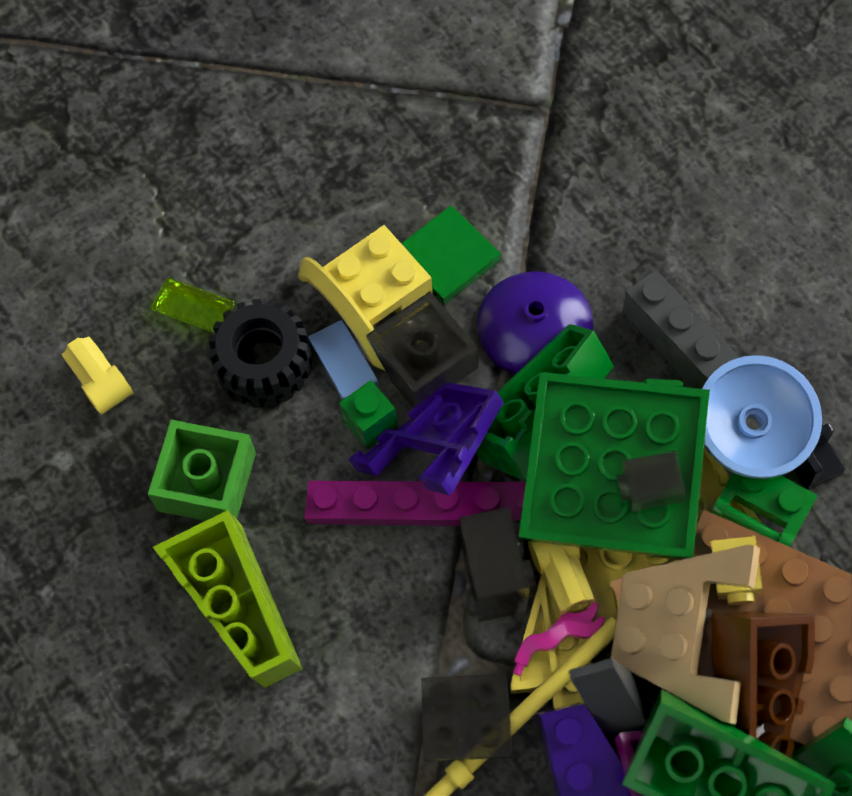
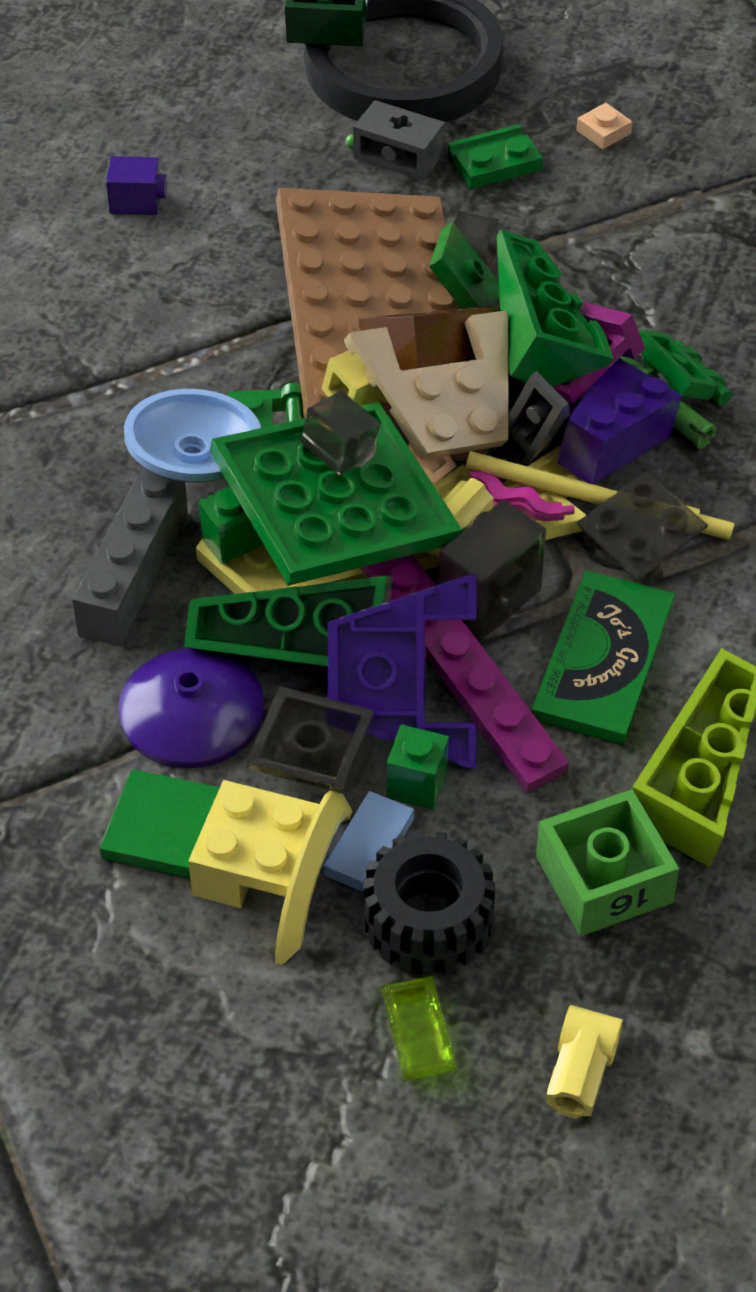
camera: 130 degrees left, 15 degrees down
(381, 616) = (603, 657): none -> green tile

